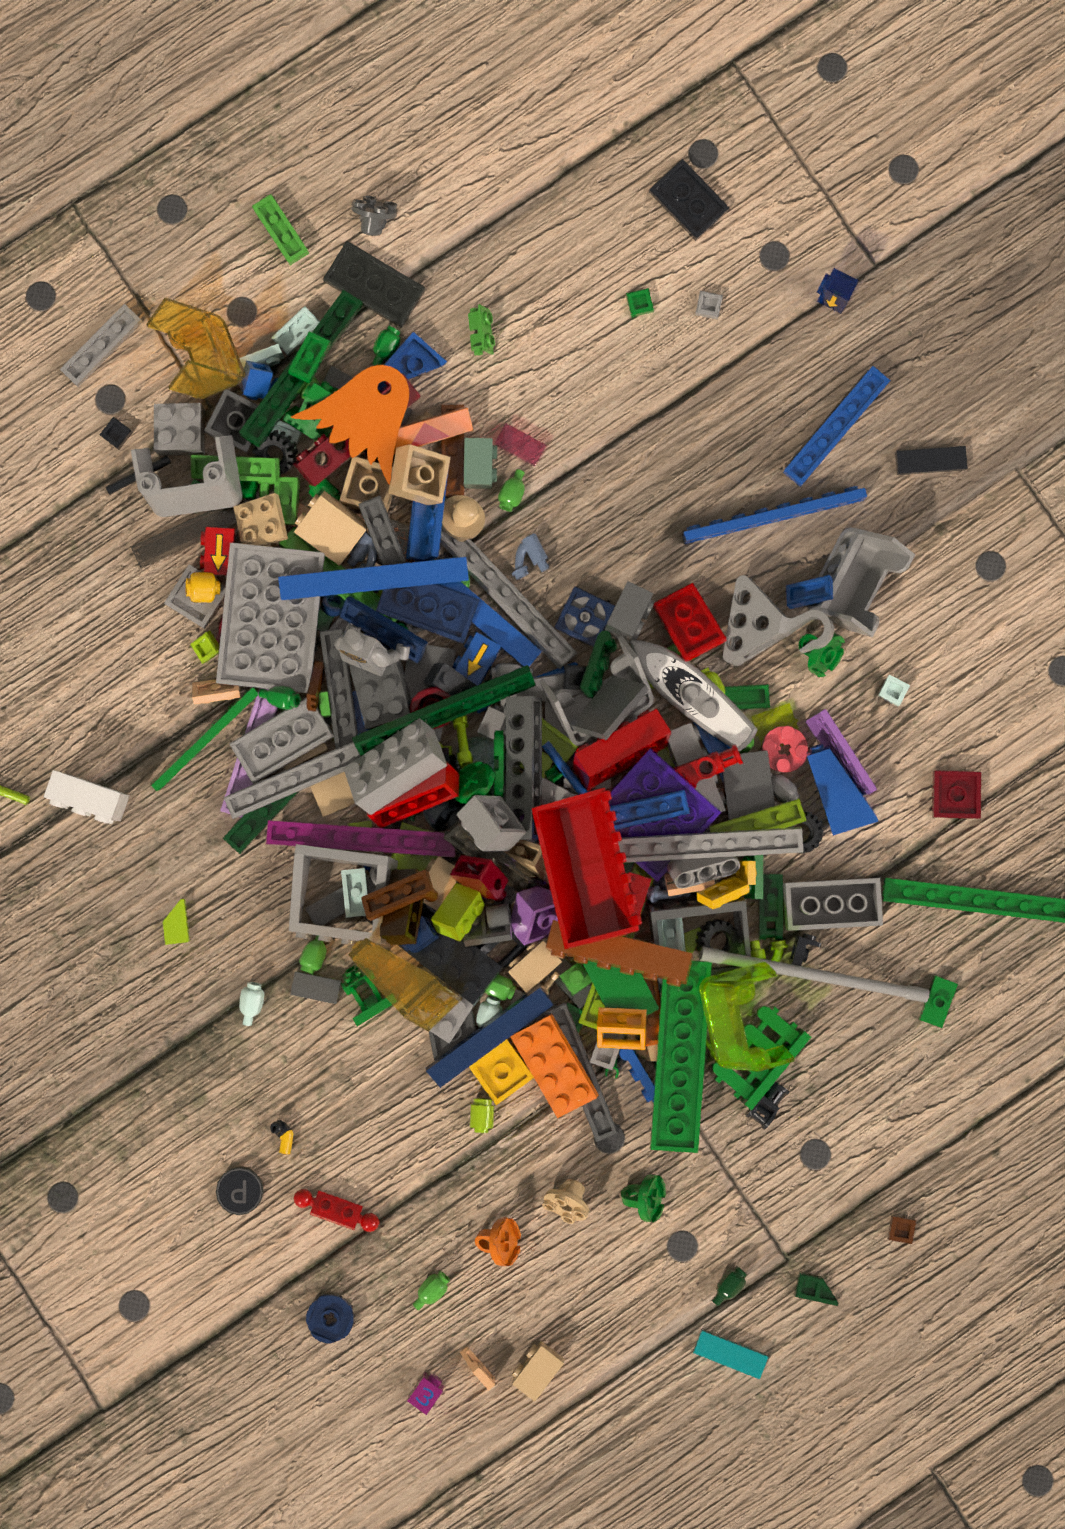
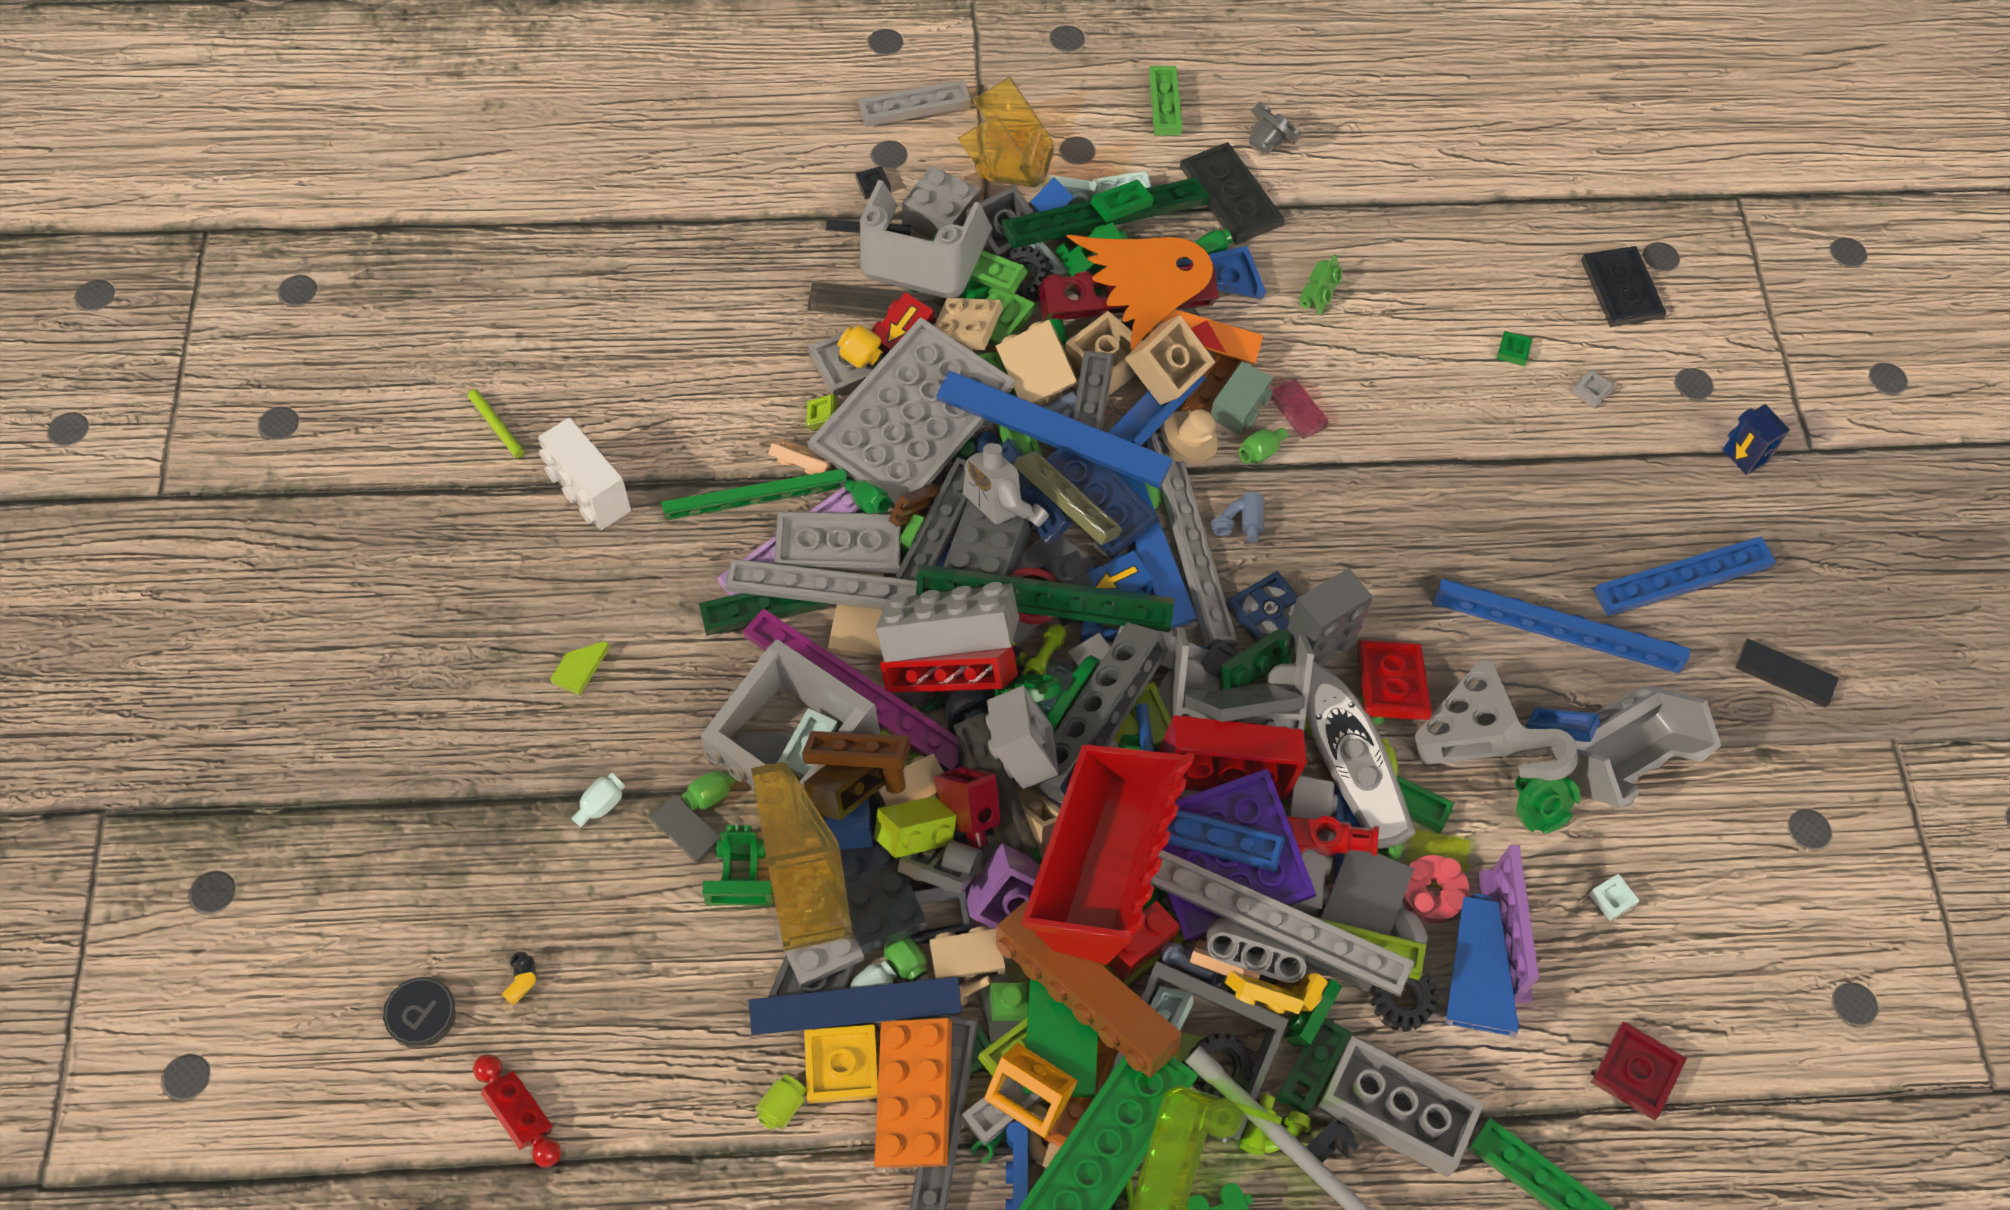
camera: 30 degrees right, 25 degrees down
(413, 623) = (1068, 497): none -> olive tile

